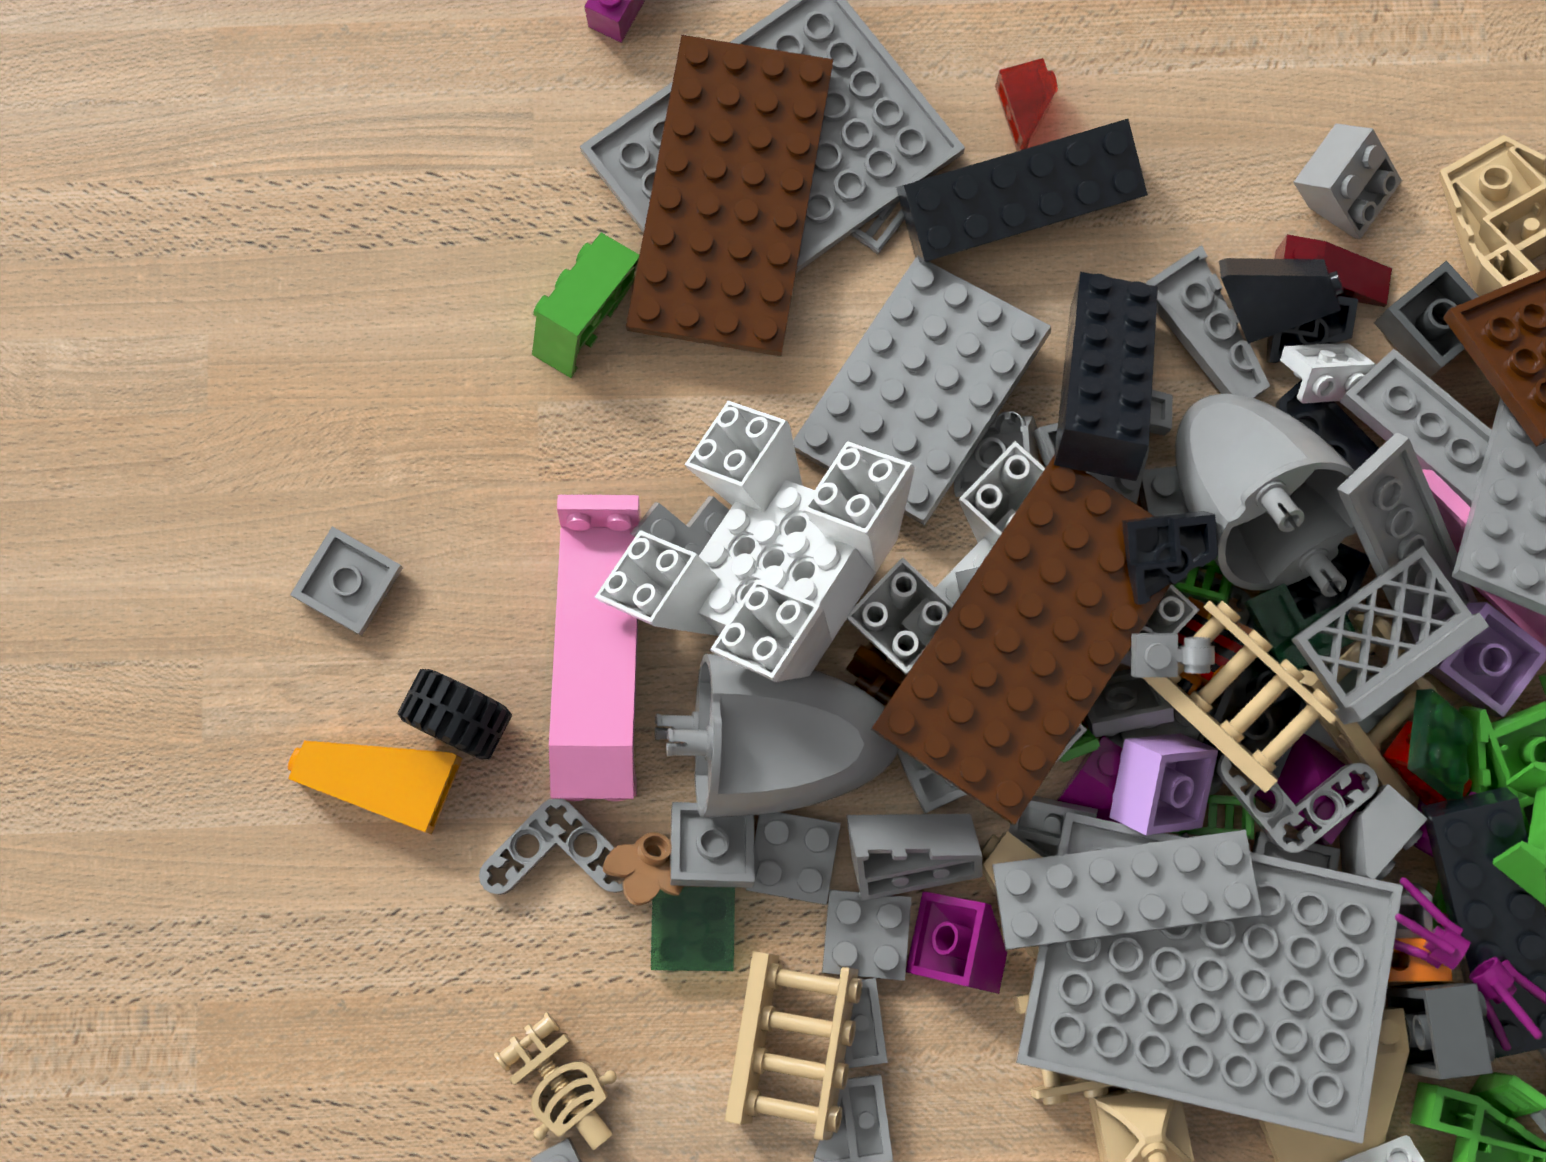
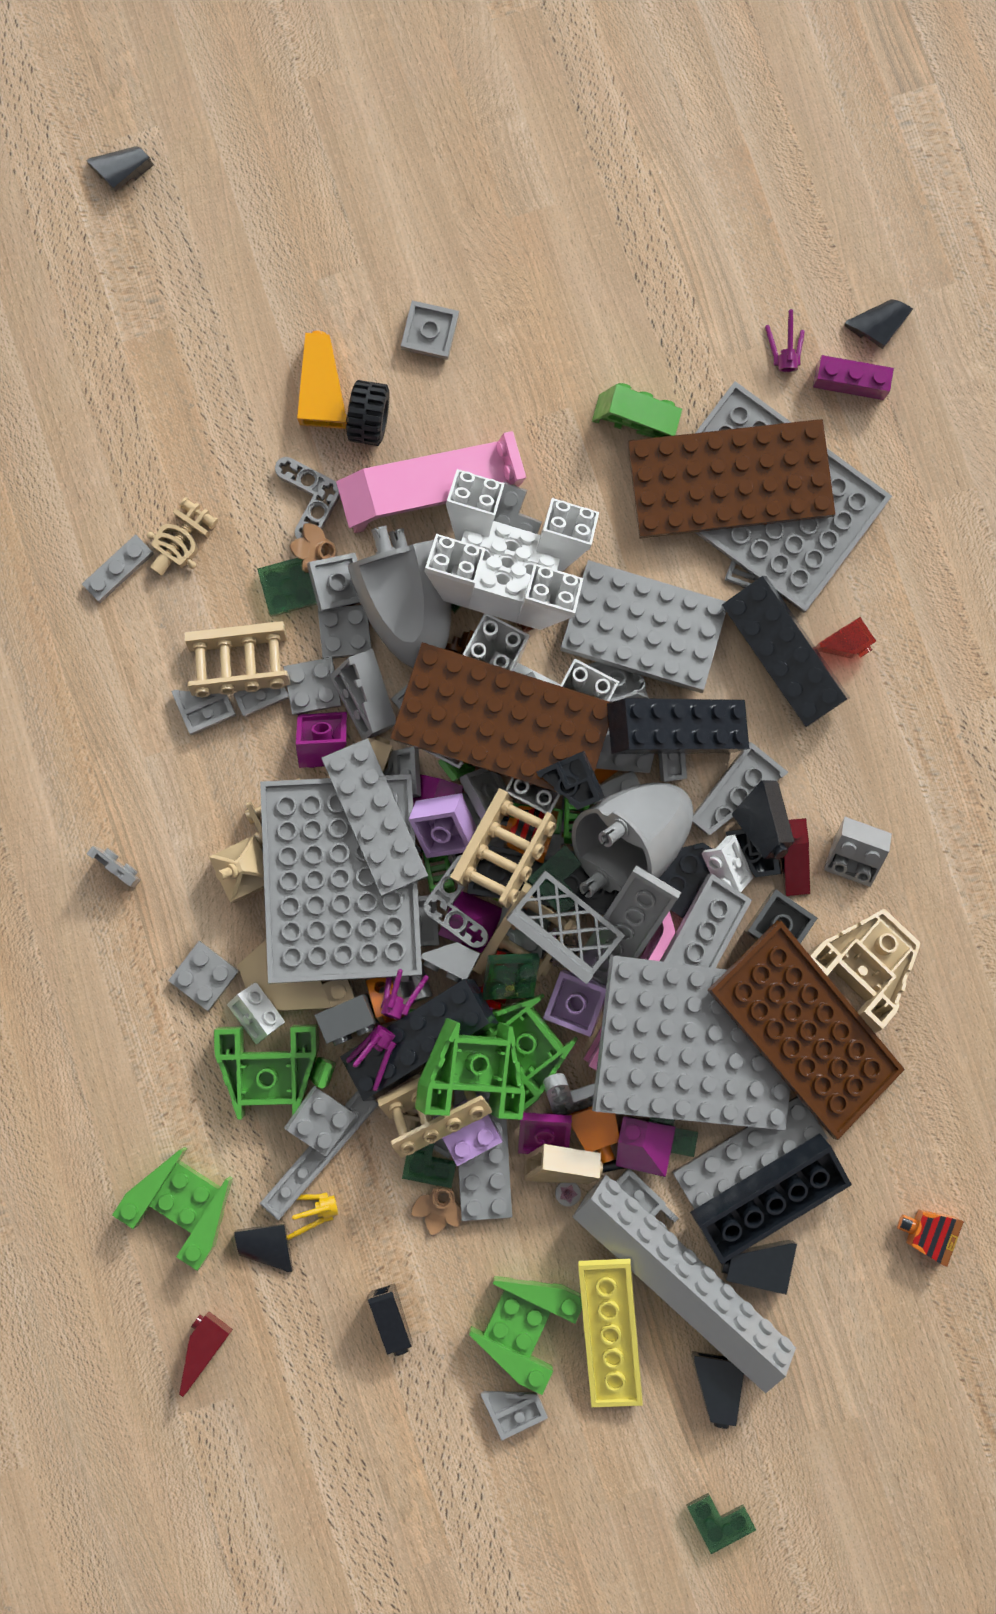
camera: 75 degrees right, 5 degrees up
(569, 59) = (788, 360): none -> magenta plant
(1159, 655) = (511, 793): light grey plate -> none

